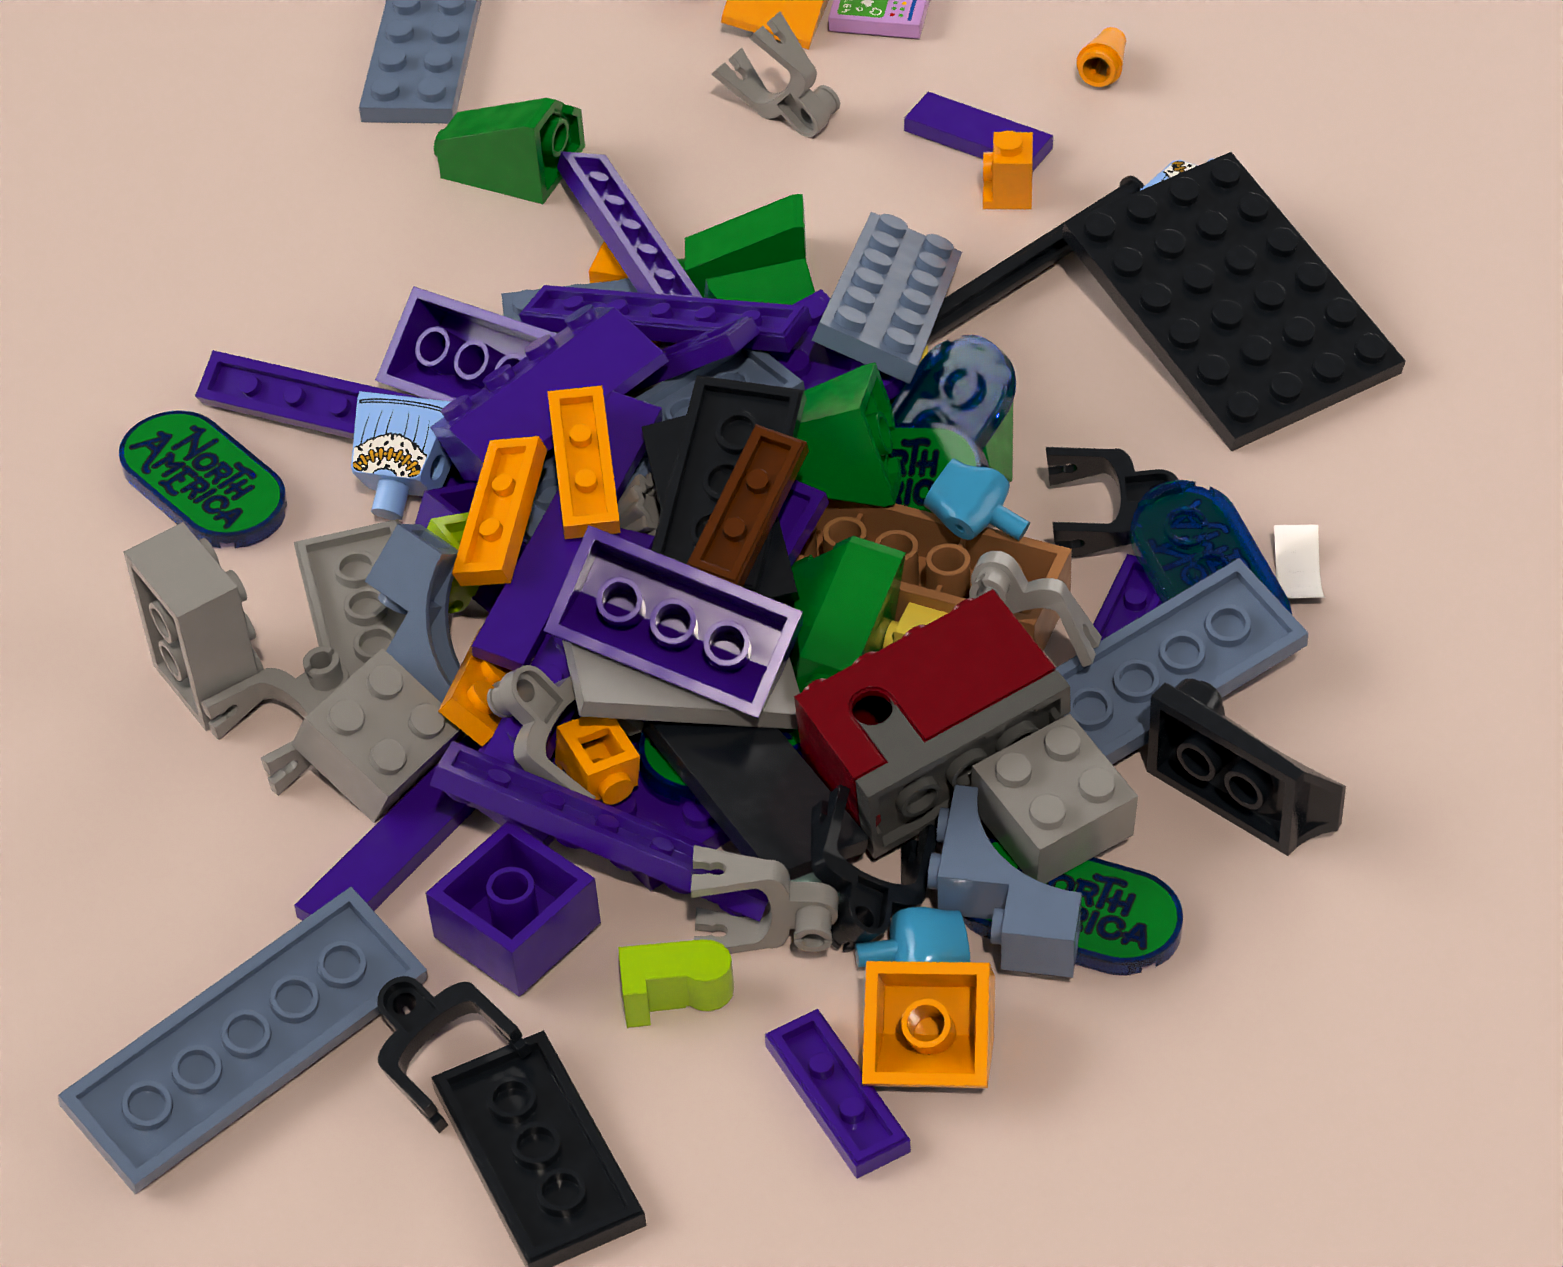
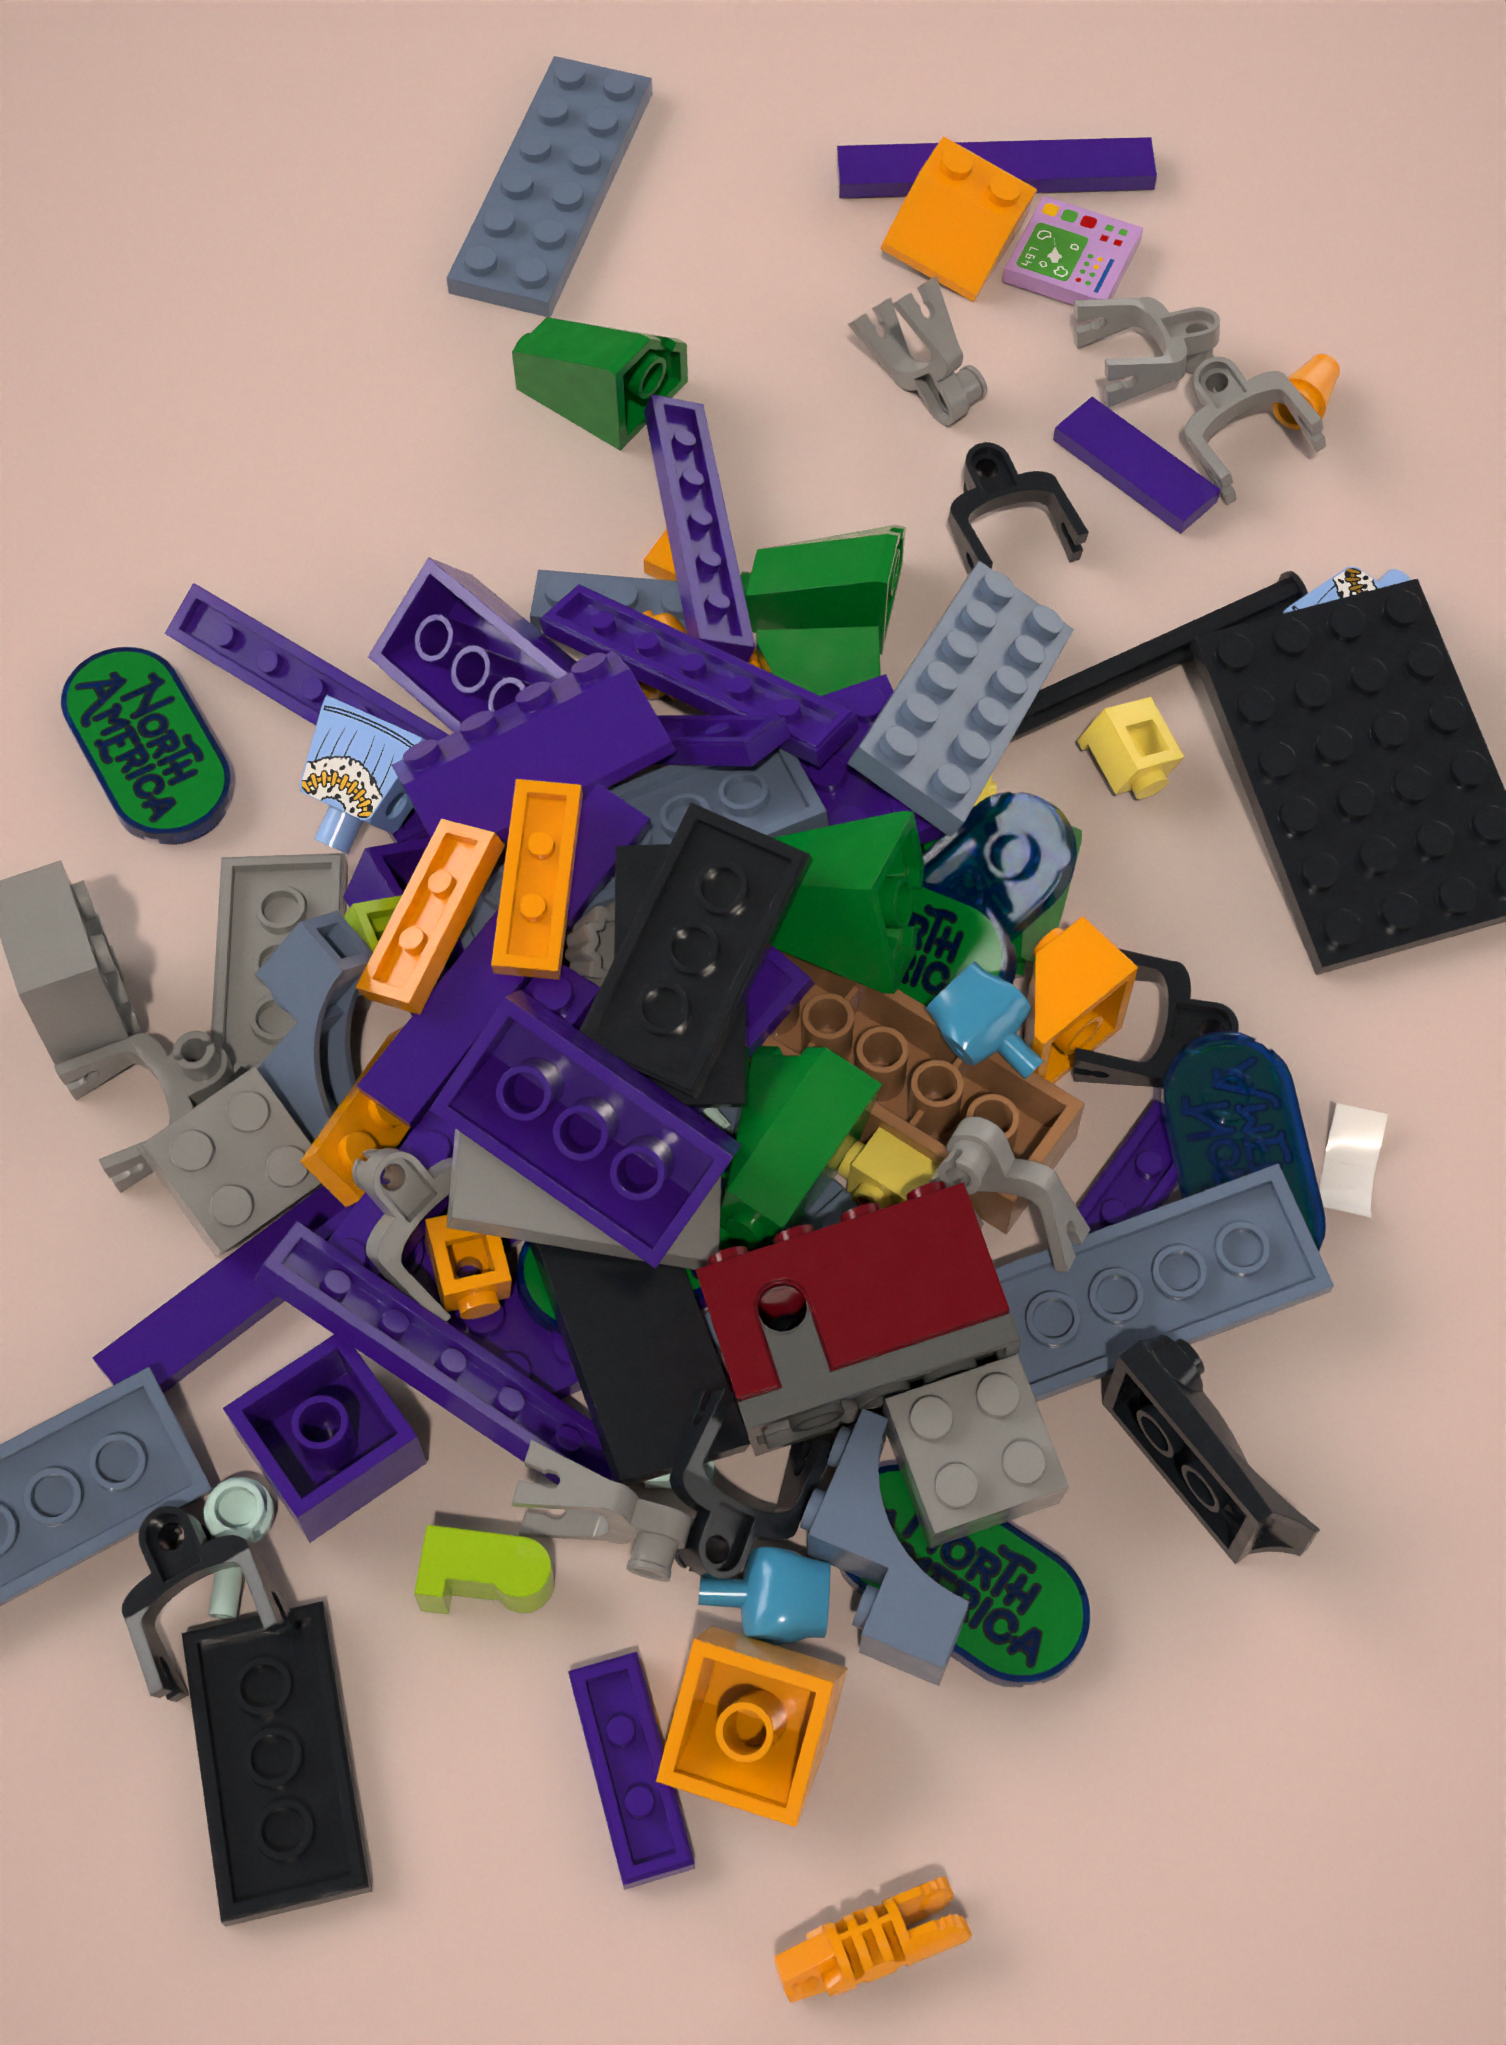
camera: 10 degrees right, 15 degrees up
(441, 975) = (239, 1509): none -> light aqua plate
(749, 505) = (707, 994): reddish brown tile -> none
(866, 160) = (994, 483): none -> black piece
(991, 35) = (1182, 335): none -> light grey piece
(1008, 171) = (1155, 532): light orange brick -> none
(1035, 318) = (1133, 747): none -> light yellow brick
(1038, 66) = (1233, 398): none -> light grey piece
(1044, 476) = (1075, 995): none -> light orange slope
(1071, 1158) = (871, 1943): none -> light orange hinge

